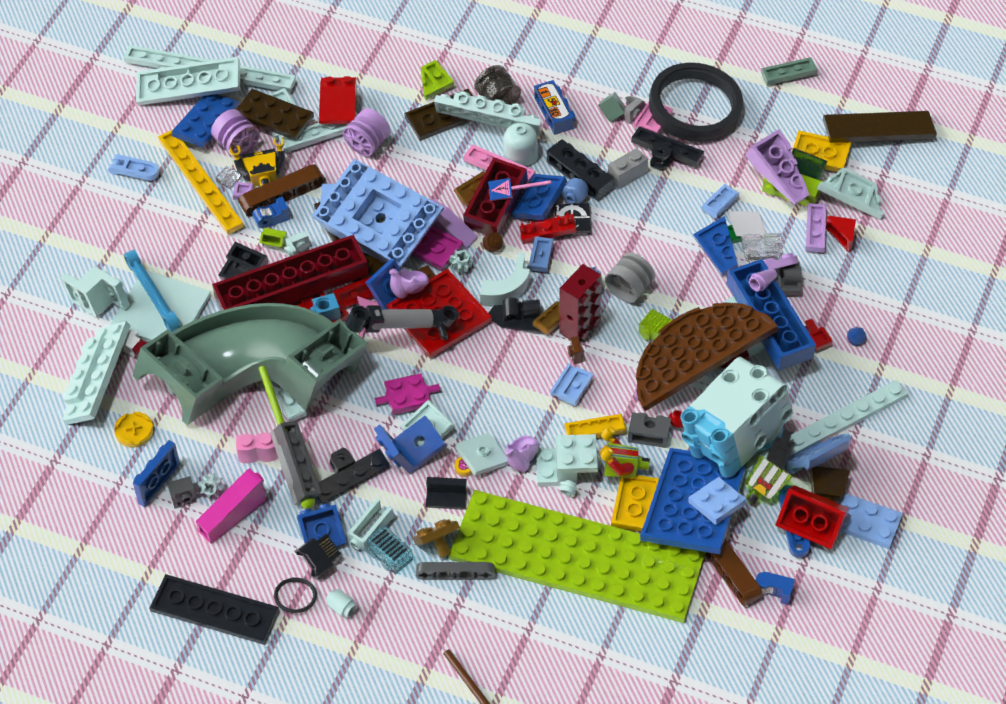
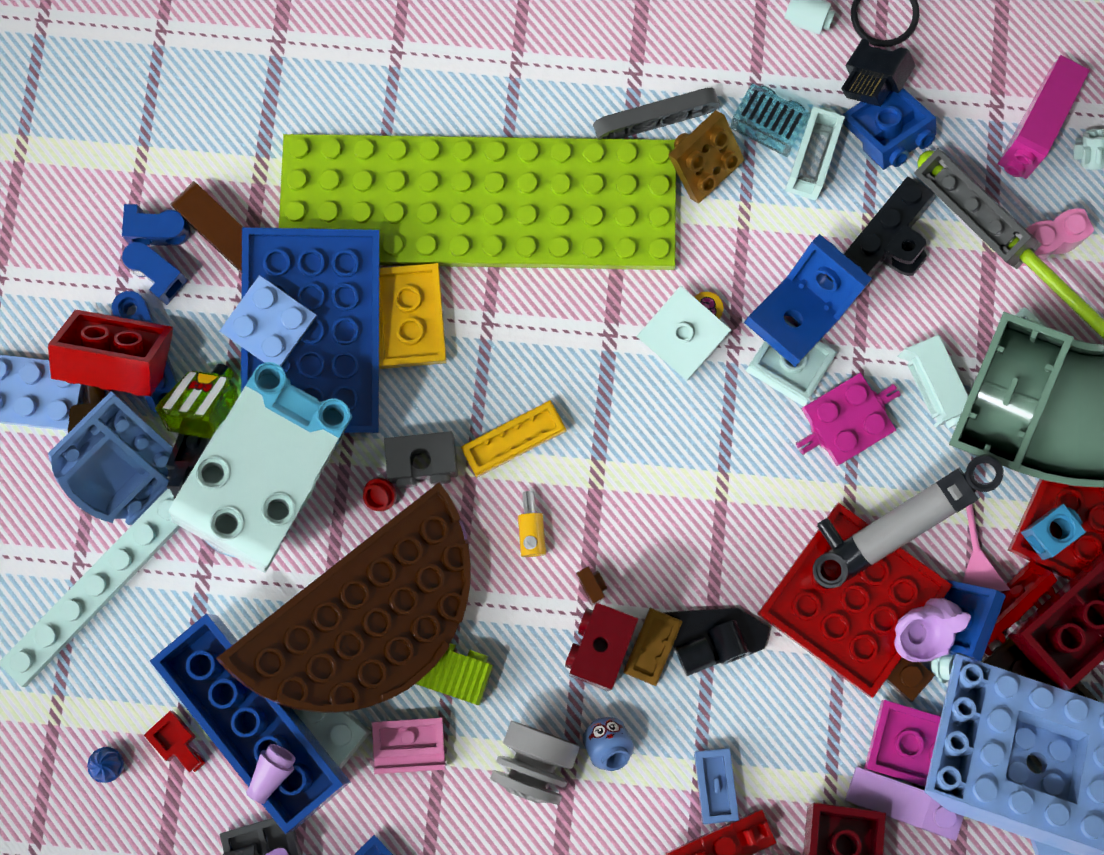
camera: 165 degrees right, 25 degrees up
(352, 397) = (936, 380): none -> light aqua window
(446, 493) = (717, 248): black panel -> none
(461, 261) = (847, 716): light aqua gear -> none
(492, 242) = (812, 785): reddish brown wheel -> none
(514, 286) = (743, 689): light aqua arch -> none
(521, 452) = (620, 351): lavender hair -> none
(568, 488) = (523, 310): light aqua plate -> none
(571, 384) = (577, 515): light blue plate -> none
(571, 456) = (539, 351): light aqua bracket -> none
(599, 383) = (531, 528): none -> yellow piece
(620, 459) = (450, 377): torso -> none
(687, 301) = (408, 745): none -> bright pink plate
(778, 561) = (147, 263): none -> blue leg

